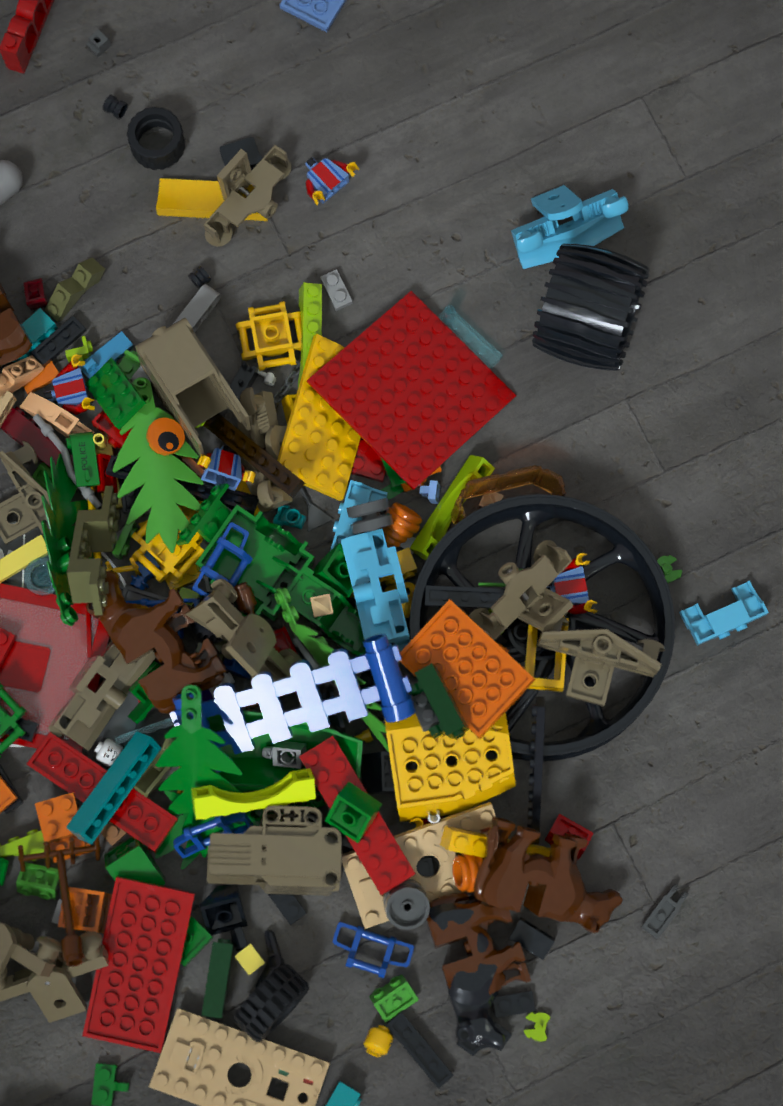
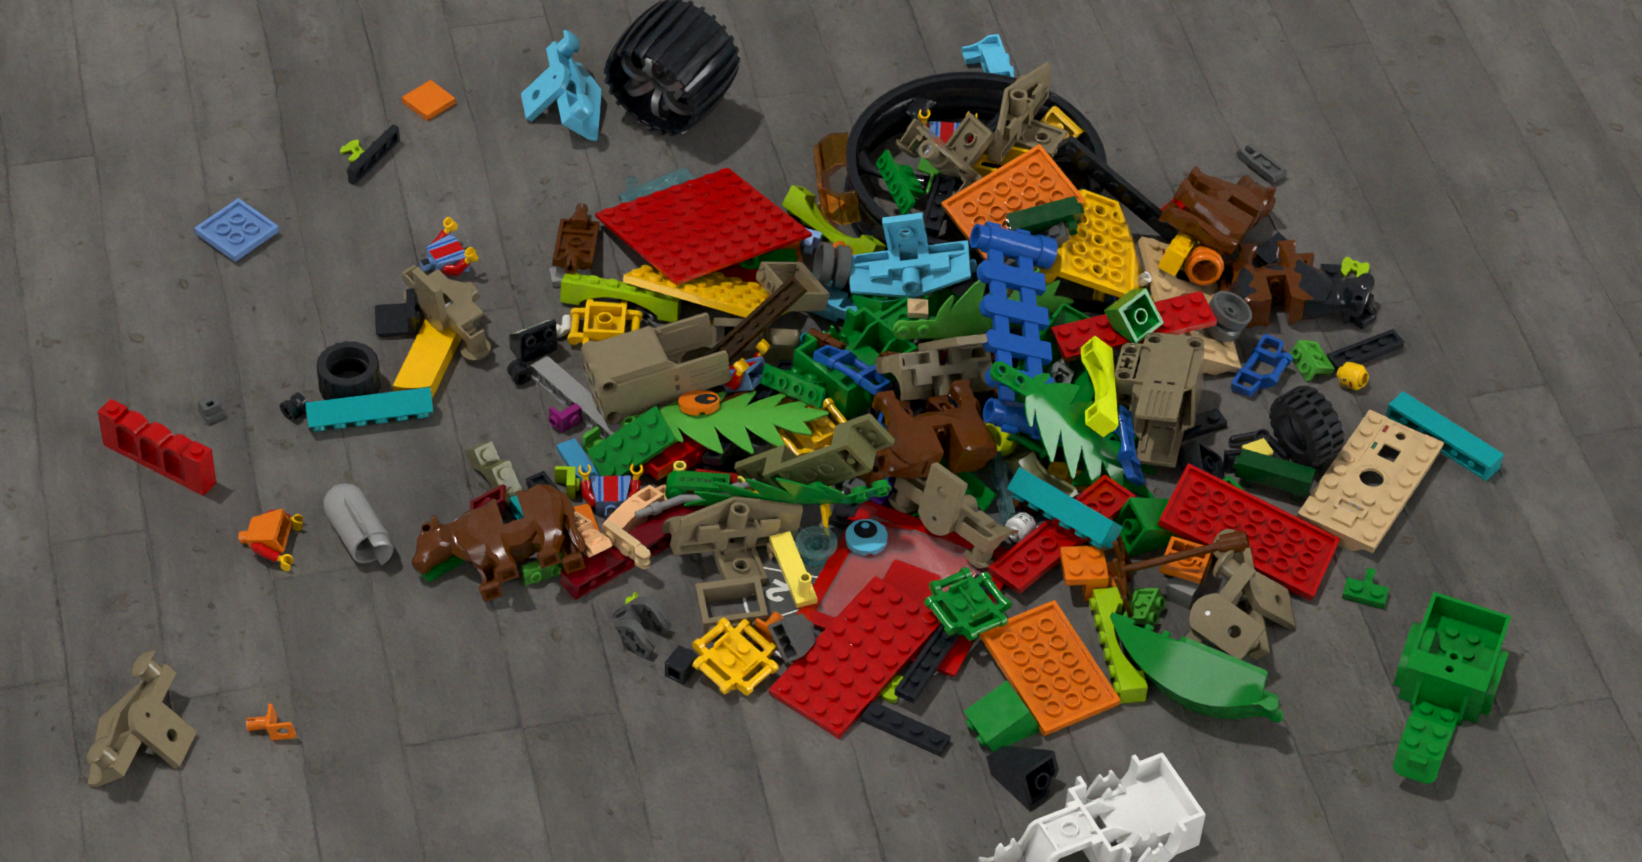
camera: 80 degrees left, 30 degrees down
(61, 629) = (866, 537): none -> medium azure tile
(122, 166) = (369, 408): none -> teal brick
(148, 325) = (566, 419): none -> magenta bracket
(237, 279) = (534, 340): none -> black slope
(263, 300) = (565, 327): none -> white arm
(263, 531) = (826, 339): none -> reddish brown pin
(362, 488) = (773, 274): none -> dark tan window
(367, 283) = (576, 241): none -> reddish brown plate
(440, 80) = (373, 154): none -> black plate
(452, 60) = (354, 147): none -> lime piece
(486, 558) = (900, 182): none -> green bracket
(532, 107) = (428, 100): none -> orange tile
(617, 698) = (1058, 119): none -> yellow slope

